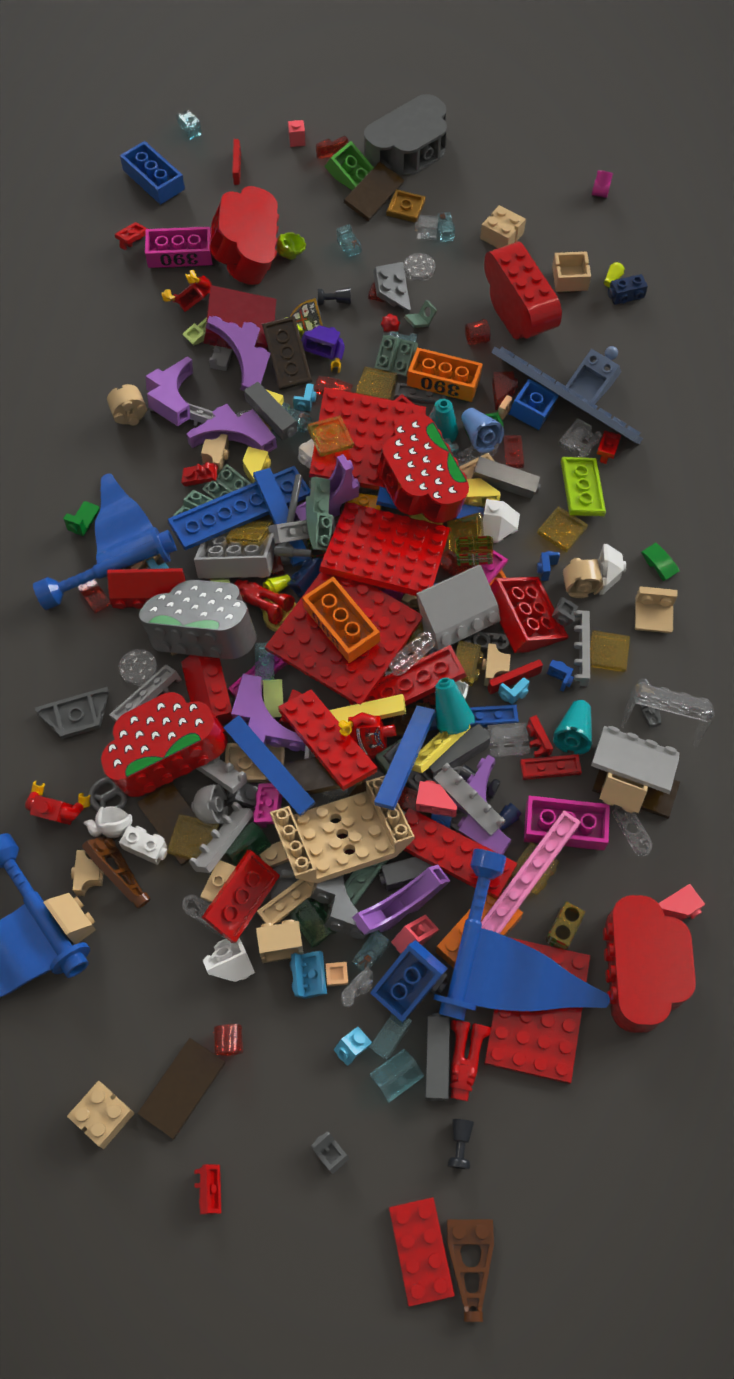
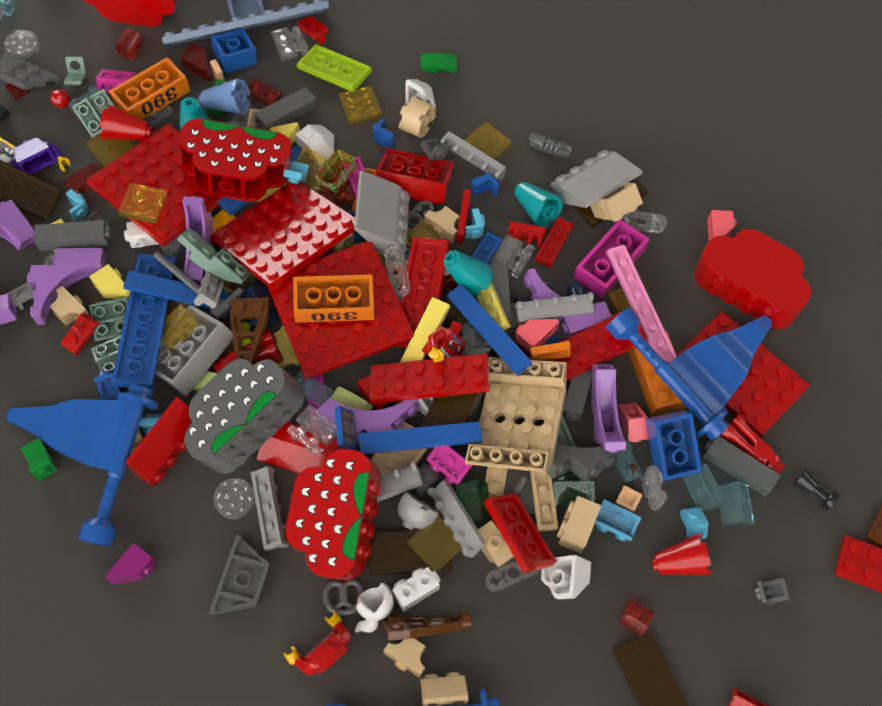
camera: 60 degrees left, 0 degrees up
(39, 632) = (132, 566): none -> magenta slope
(94, 596) = (133, 495): clear red slope -> none
(163, 524) = (105, 386): none -> blue bracket
(228, 681) = (316, 424): none -> clear plate
(237, 702) = (345, 428): none -> tile
(293, 566) = (249, 309): none -> reddish brown plate
(310, 1053) = (683, 558): none -> red cone
(393, 376) = (122, 125): none -> red cone
(421, 820) = (550, 351): none -> orange tile
(436, 342) = (111, 78): none -> dark pink bracket
(450, 525) = (297, 172): none -> medium azure bracket
(553, 940) = (686, 319): clear yellow piece -> none
(654, 609) = (476, 92): tan bracket -> none
(675, 702) = (593, 112): clear windscreen -> none

